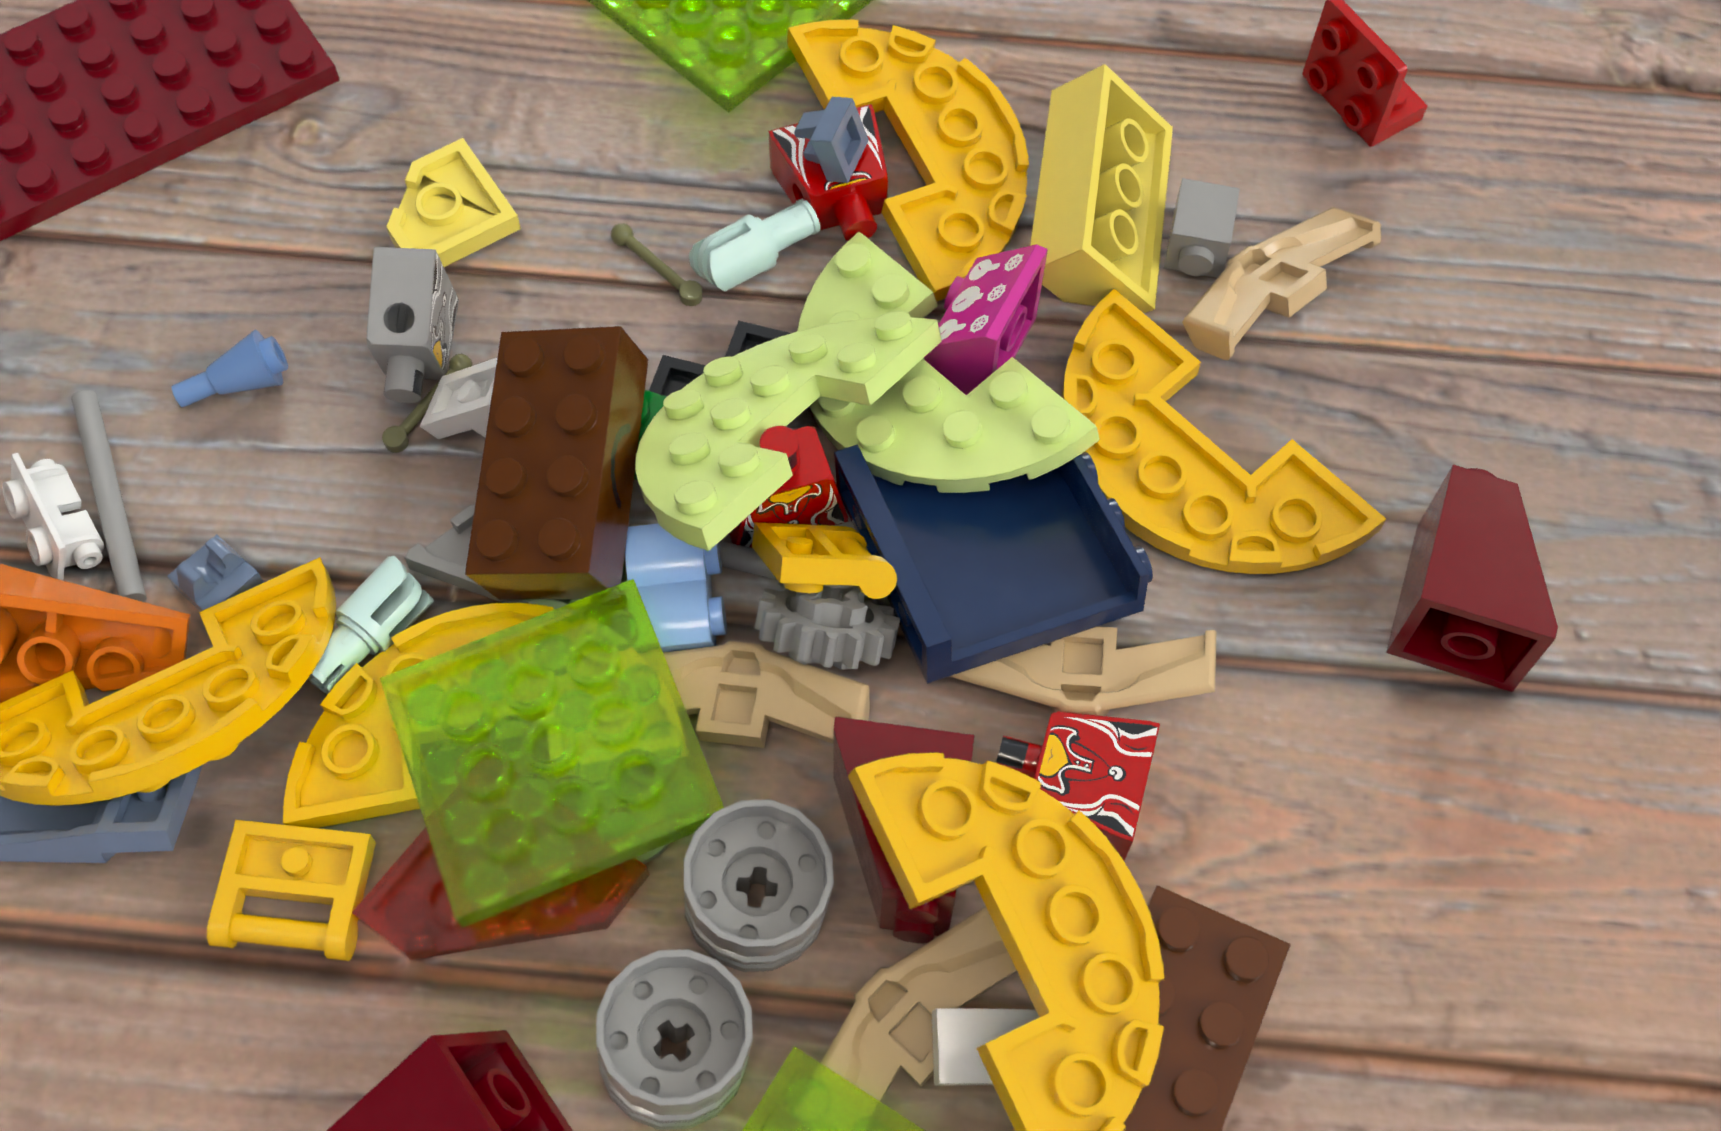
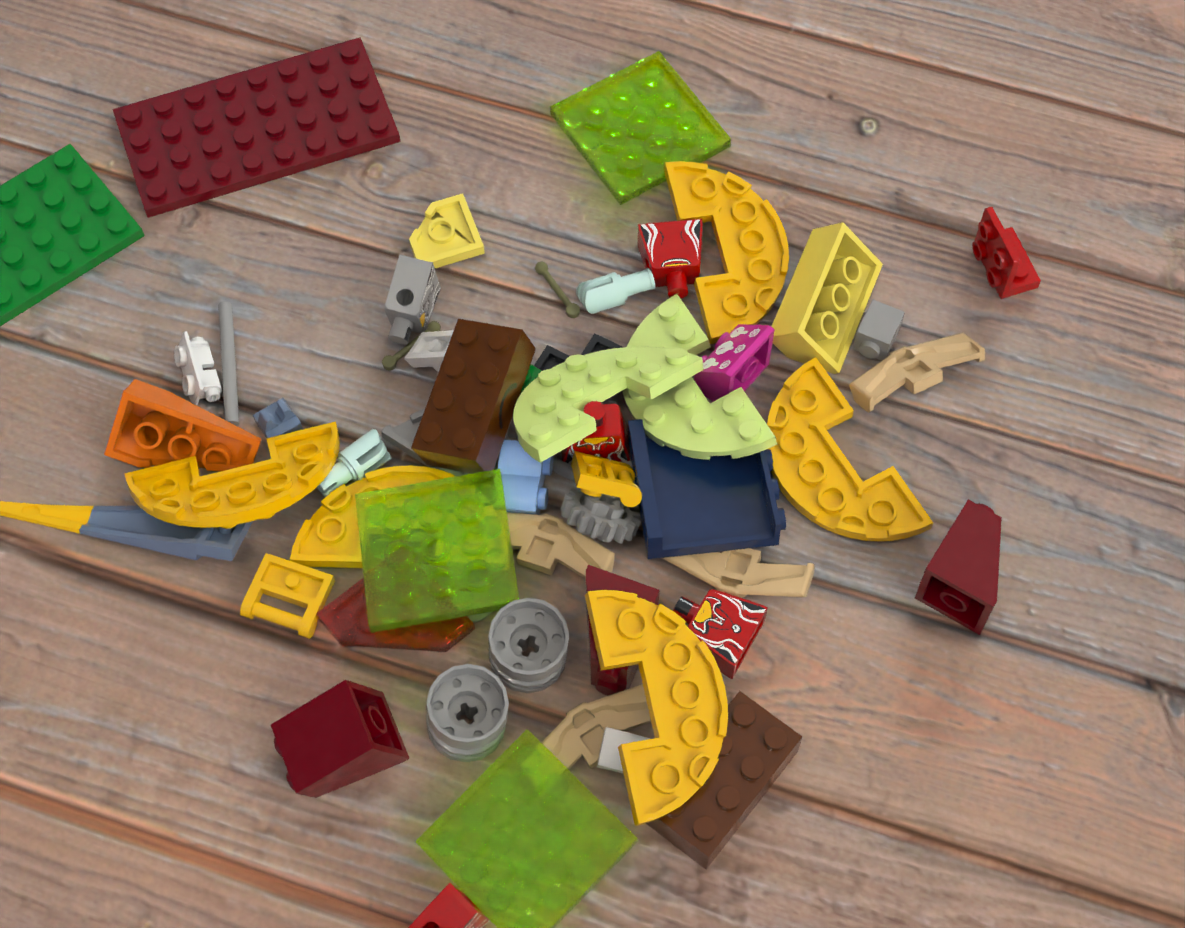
camera: 15 degrees right, 0 degrees up
(244, 367) = (317, 305): medium blue cone -> none
(835, 138) = (673, 238): sand blue tile -> none

